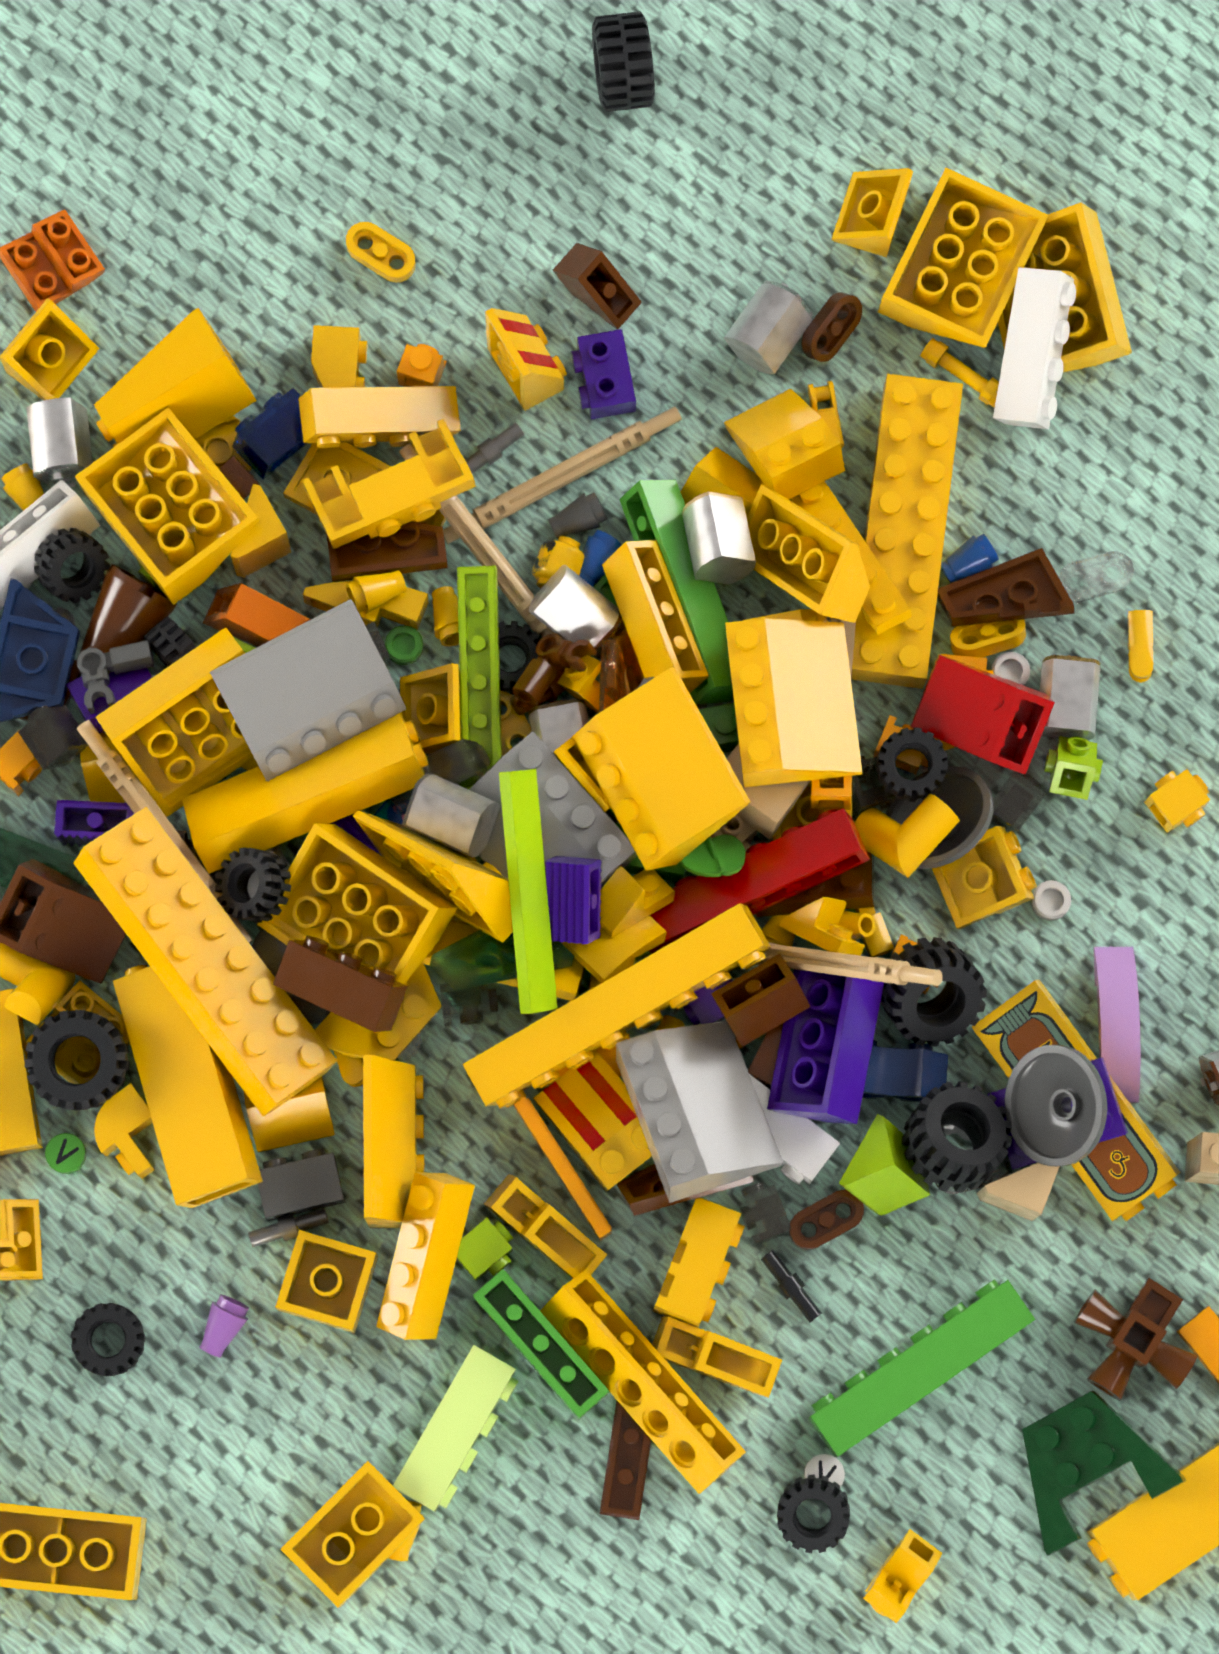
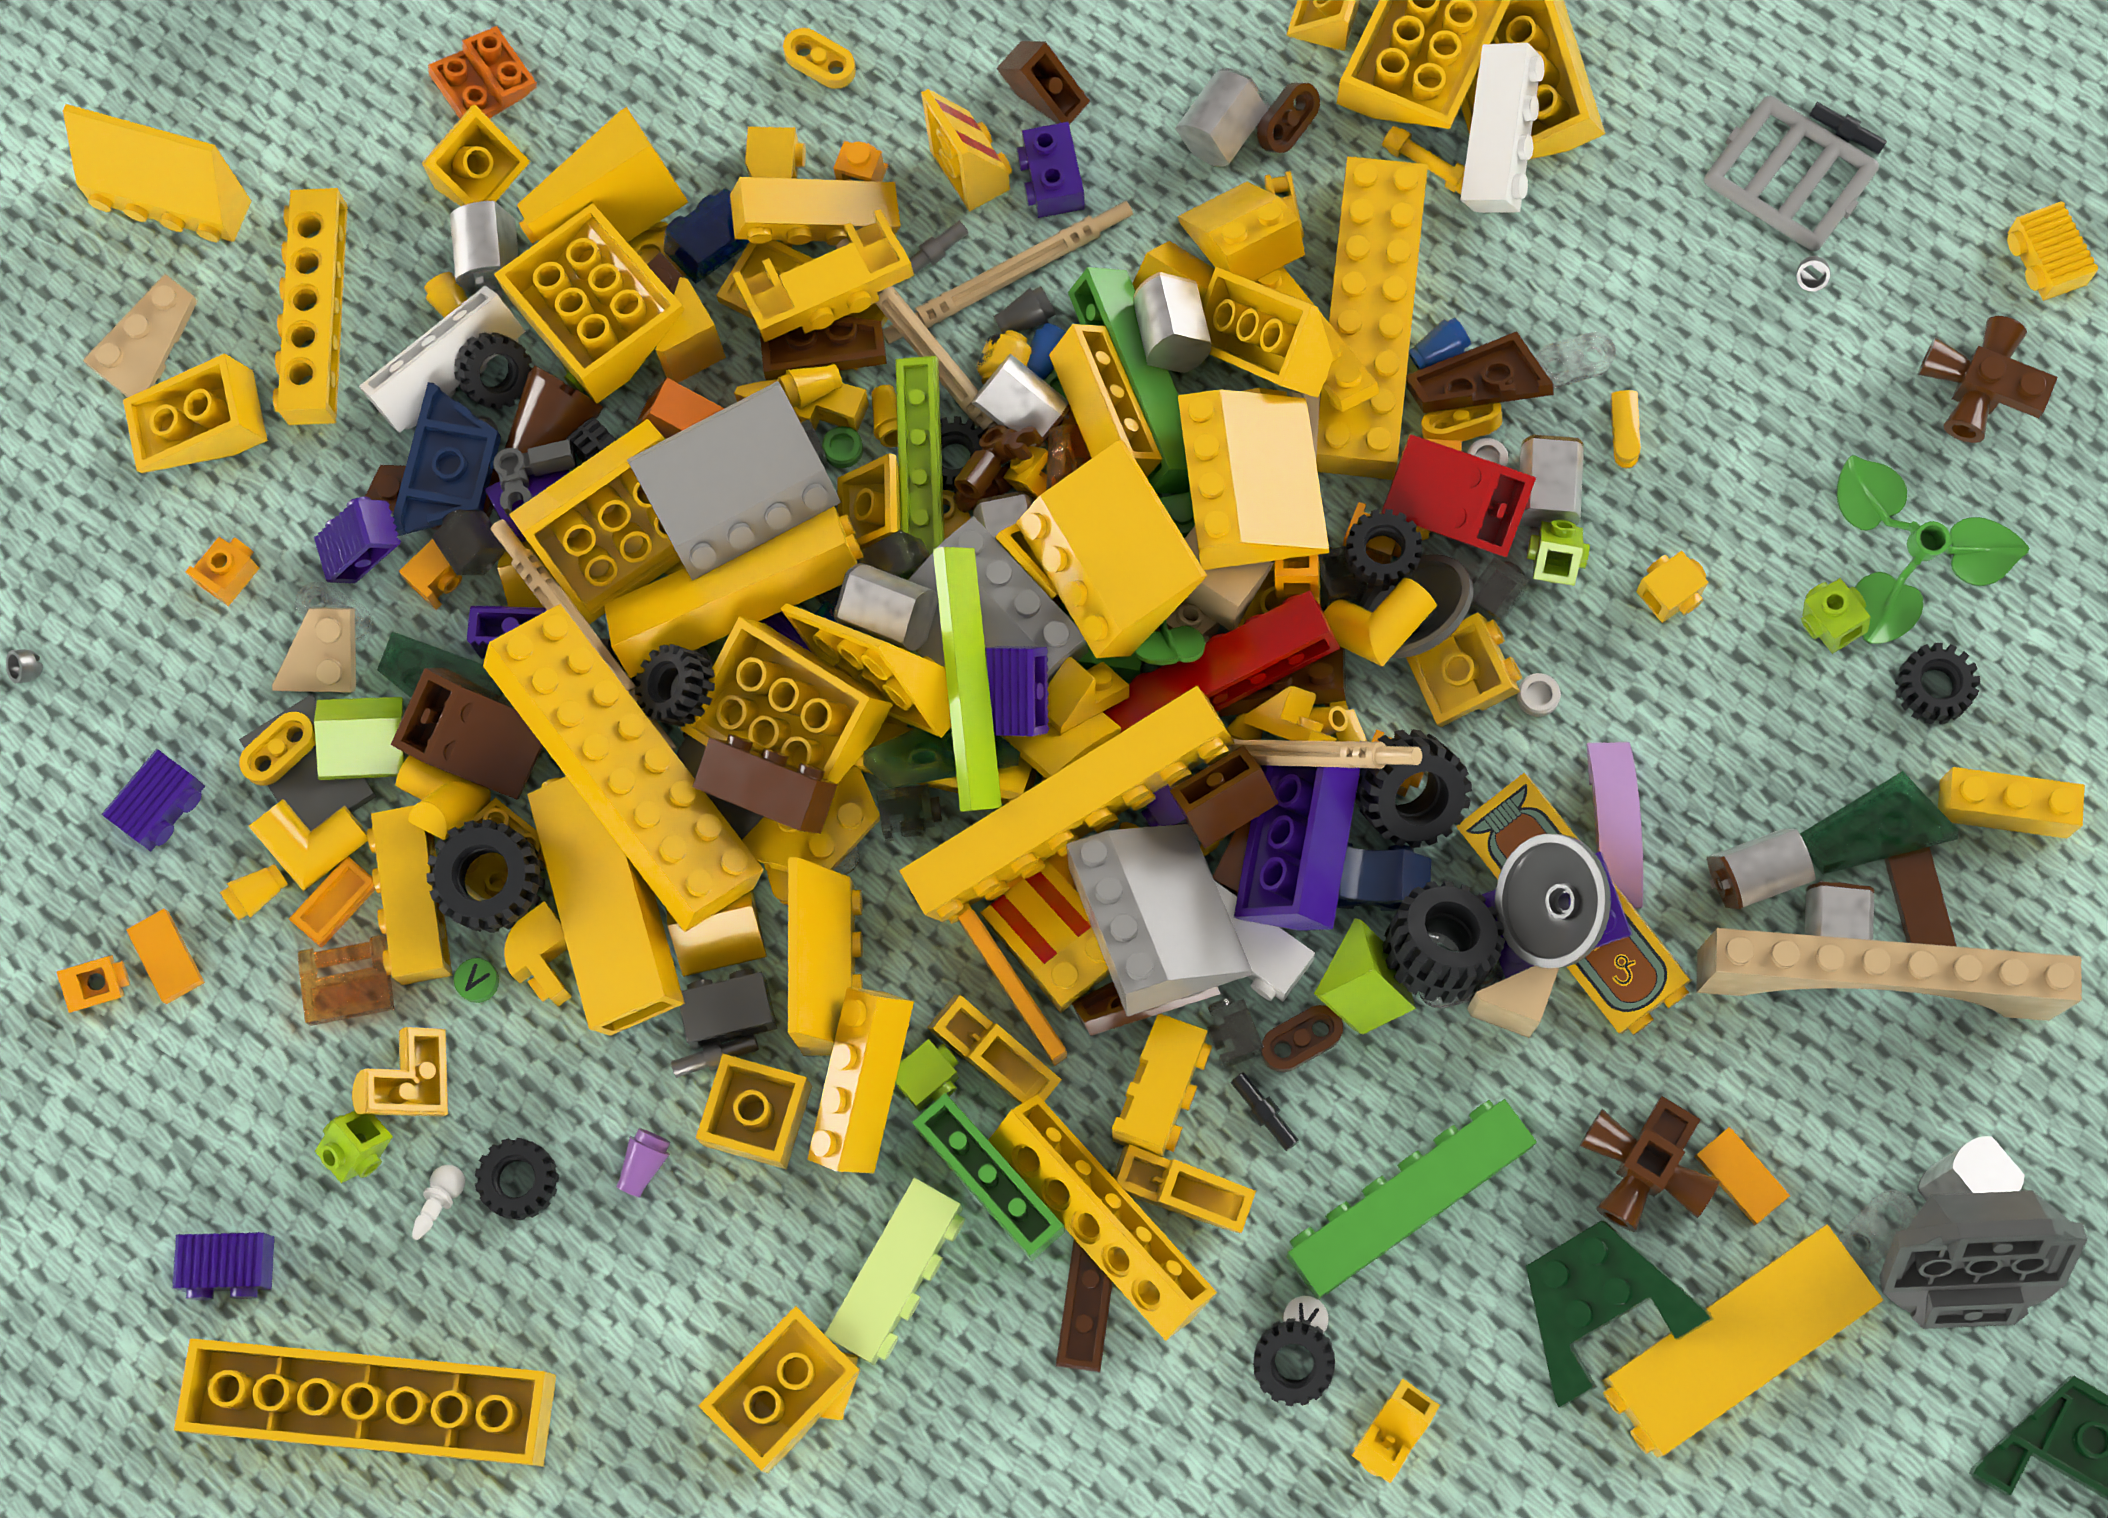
camera: 10 degrees right, 5 degrees down
(41, 1343) = (445, 1184): none -> white bar

